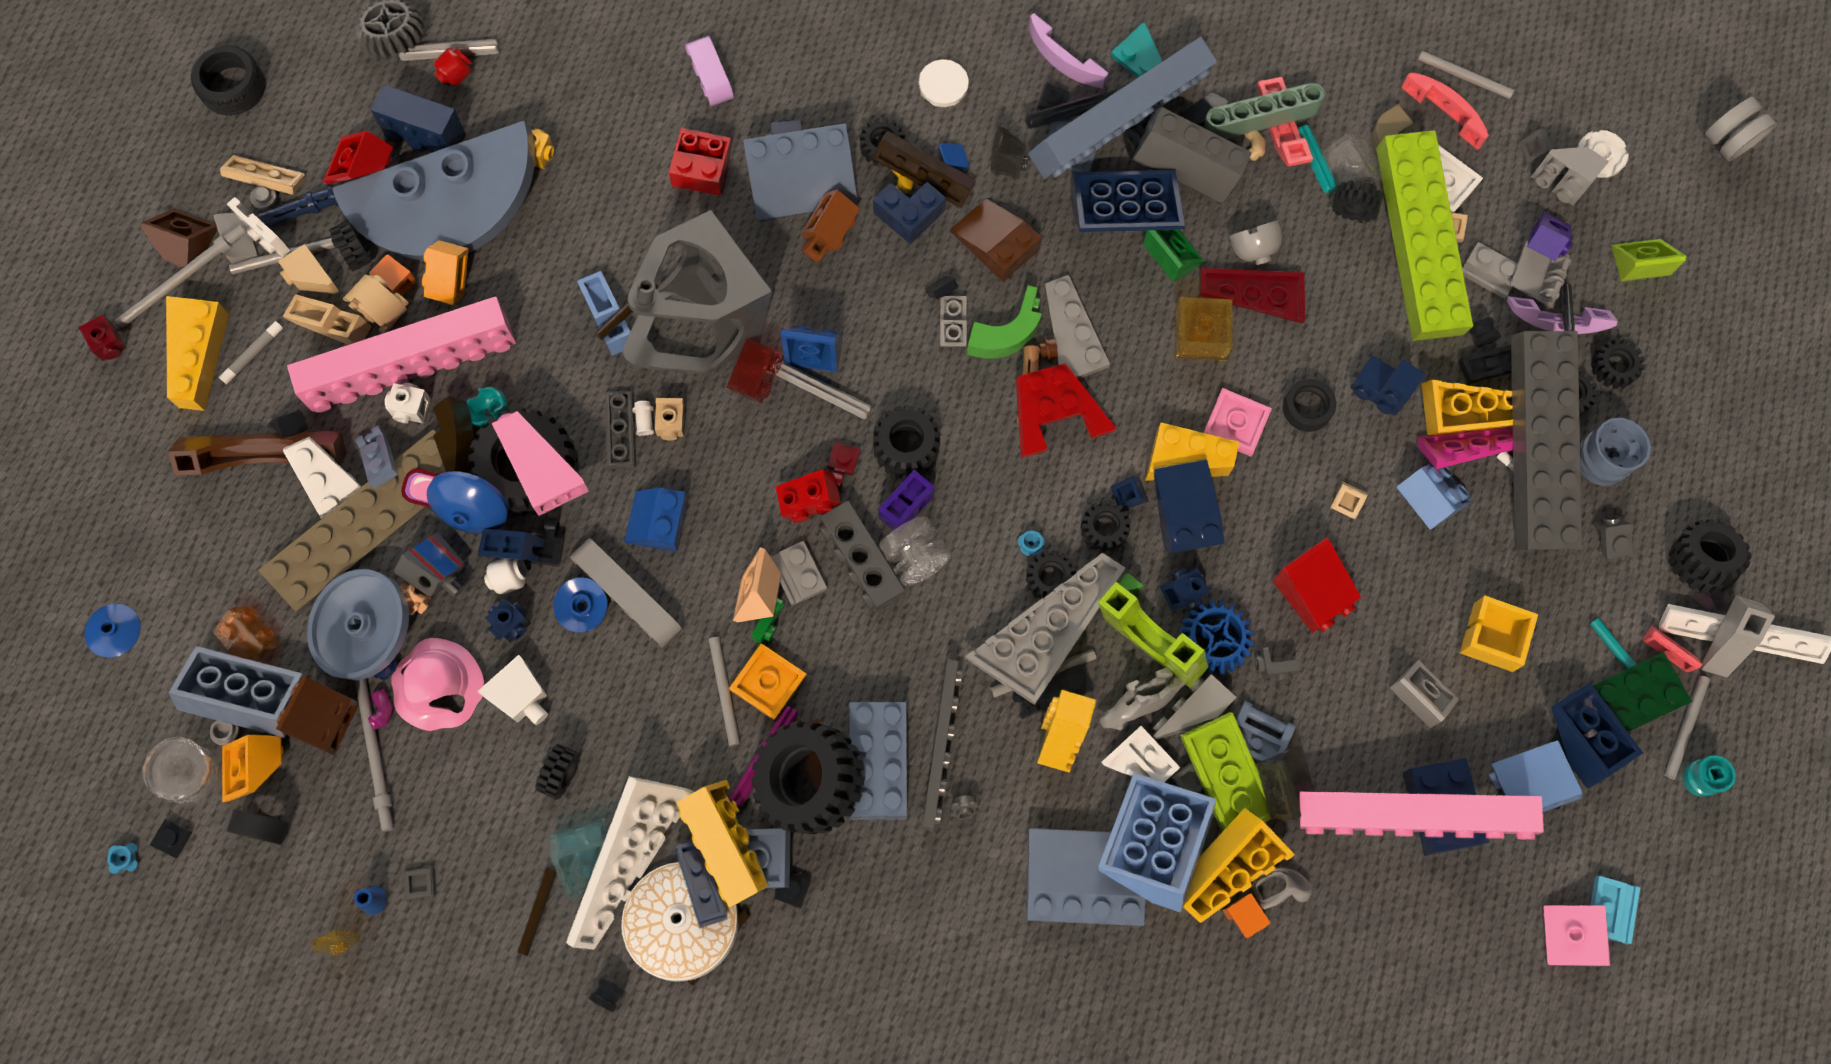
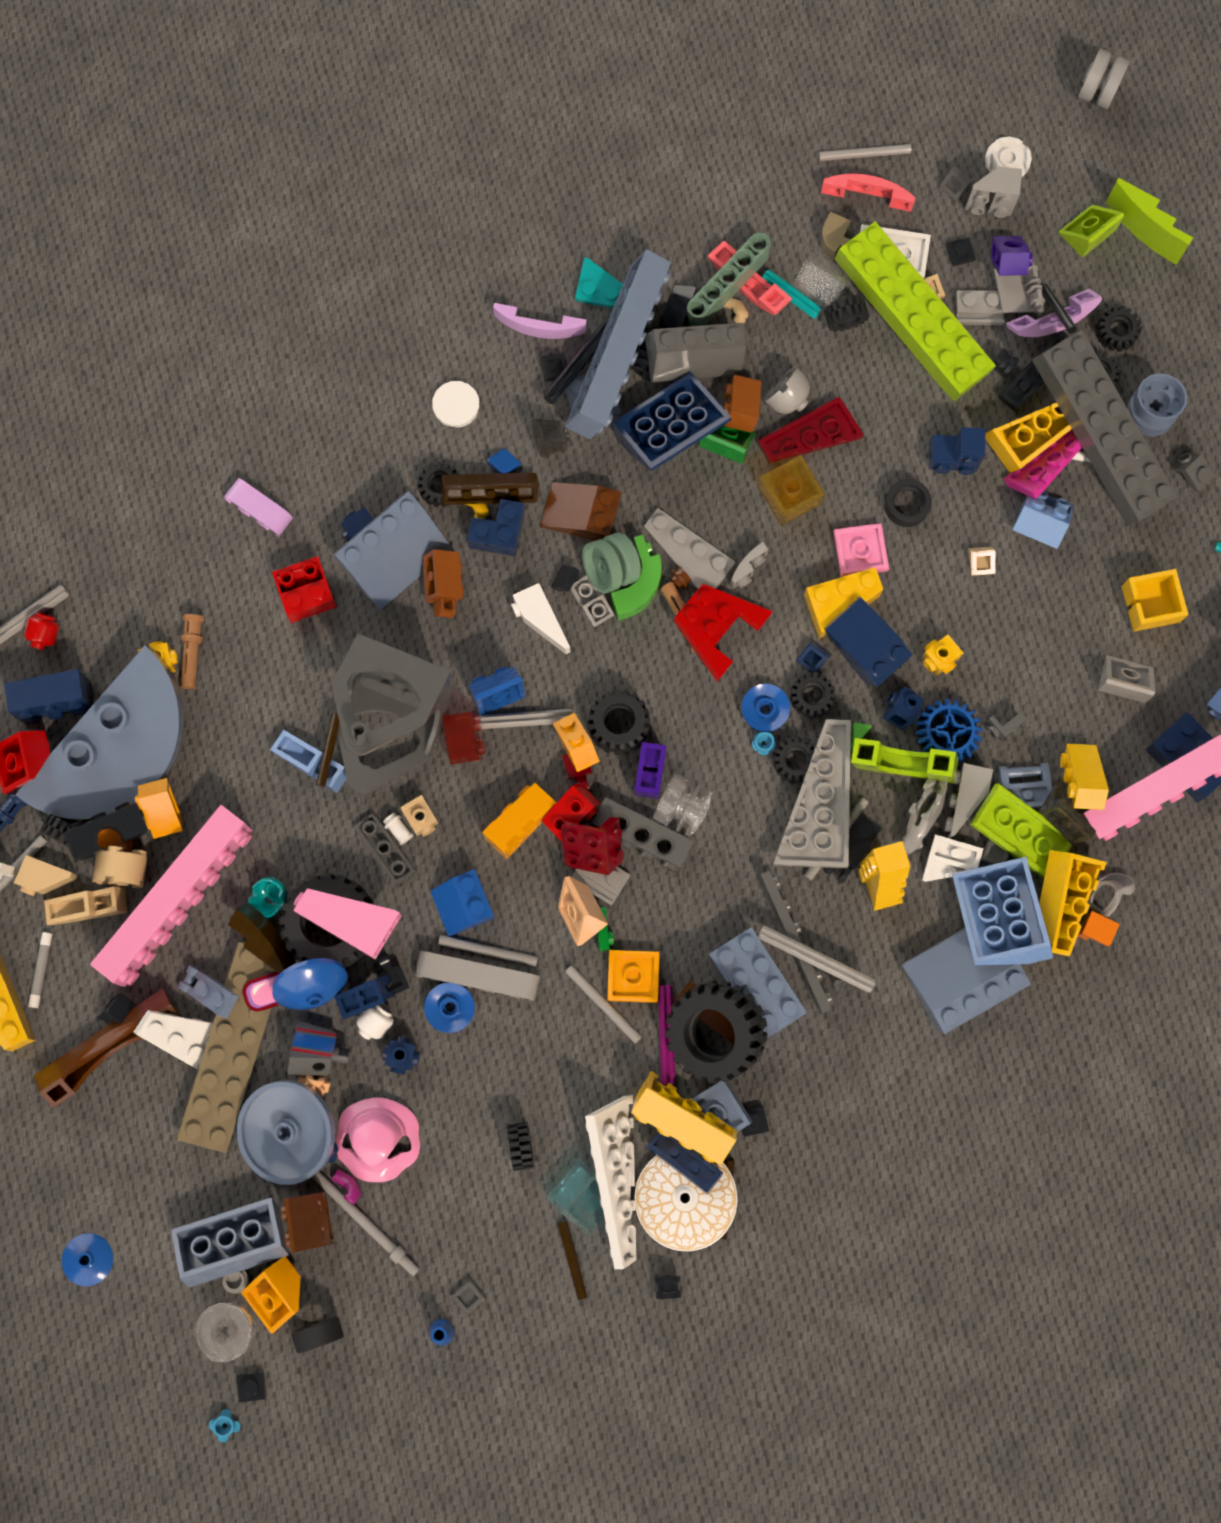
camera: 30 degrees left, 5 degrees up
(245, 633) = (199, 1195): clear orange bracket -> none
(335, 942) = (440, 1381): clear yellow plate -> none
(358, 254) = (125, 821): none -> black arch
(407, 403) = (209, 933): white brick -> none
(516, 692) = (446, 1106): white torso -> none
(574, 149) = (191, 640): none -> medium nougat pin
(651, 576) = (488, 950): none -> light grey bar
(753, 474) = (518, 820): none -> light orange wedge
(806, 539) = (593, 847): none -> dark red bracket
(853, 434) = (576, 742): none -> light orange piece
(895, 302) = (538, 615): none -> white slope
(949, 770) = (816, 959): none -> light grey axle
(991, 294) = (611, 562): none -> sand green wheel
(1061, 501) = (773, 698): none -> blue dish
(1111, 376) = (744, 571): none -> light grey slope
(1206, 226) = (742, 403): none -> dark orange brick
(1253, 562) = (941, 655): none -> yellow brick
(1318, 587) = (1002, 645): red slope -> none
(1322, 757) = (1084, 776): none -> yellow brick
(1503, 210) = (960, 251): none -> black plate
(1707, 280) = (1148, 222): none -> lime slope

